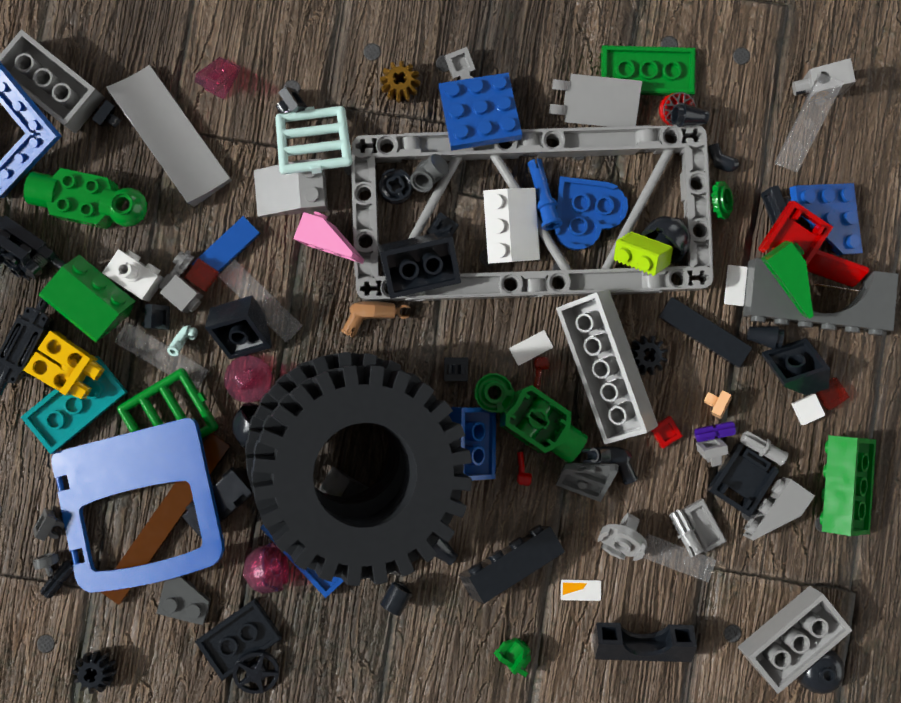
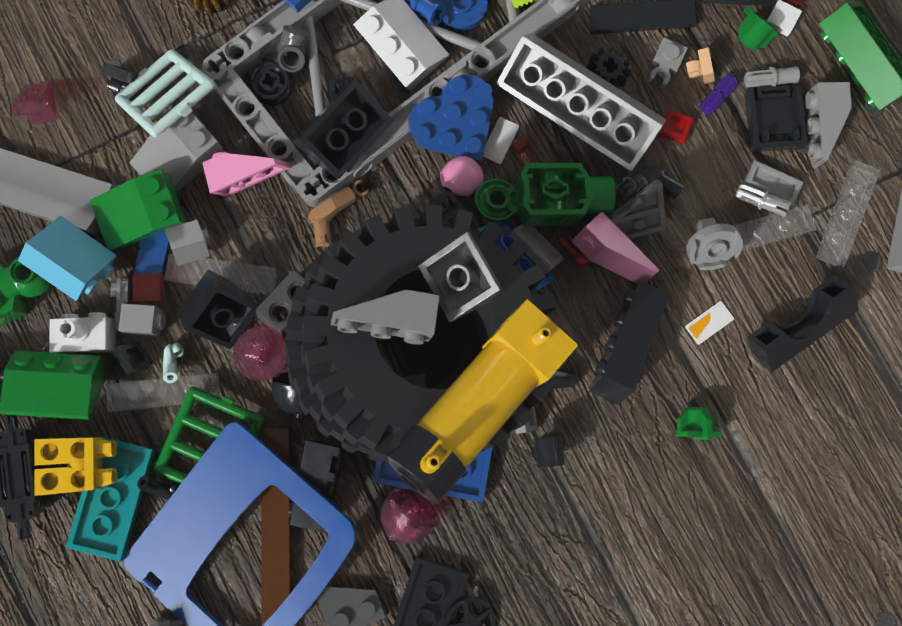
camera: 30 degrees left, 5 degrees down
(111, 422) = (157, 488): none -> black arm
(160, 216) = (68, 258): none -> medium azure brick
(233, 215) = (137, 210): none -> green slope
(253, 263) = (188, 242): none -> light grey brick
(289, 354) = (278, 301): none -> dark grey brick
(323, 560) = (480, 401): none -> yellow piece
(345, 451) = (399, 314): none -> light grey slope
(405, 454) = (460, 277): none -> flat silver slope
(482, 356) = (462, 176): none -> bright pink hair
(497, 448) = (537, 247): none -> light grey tile
(507, 313) = (456, 119): none -> blue plate
(548, 487) = (610, 248): none -> bright pink slope
(699, 377) = (667, 60): none -> light grey plate
(712, 451) = (730, 111): light grey tile -> none
(741, 587) = (848, 214): none -> clear tile
(778, 405) = (755, 31): none -> green piece

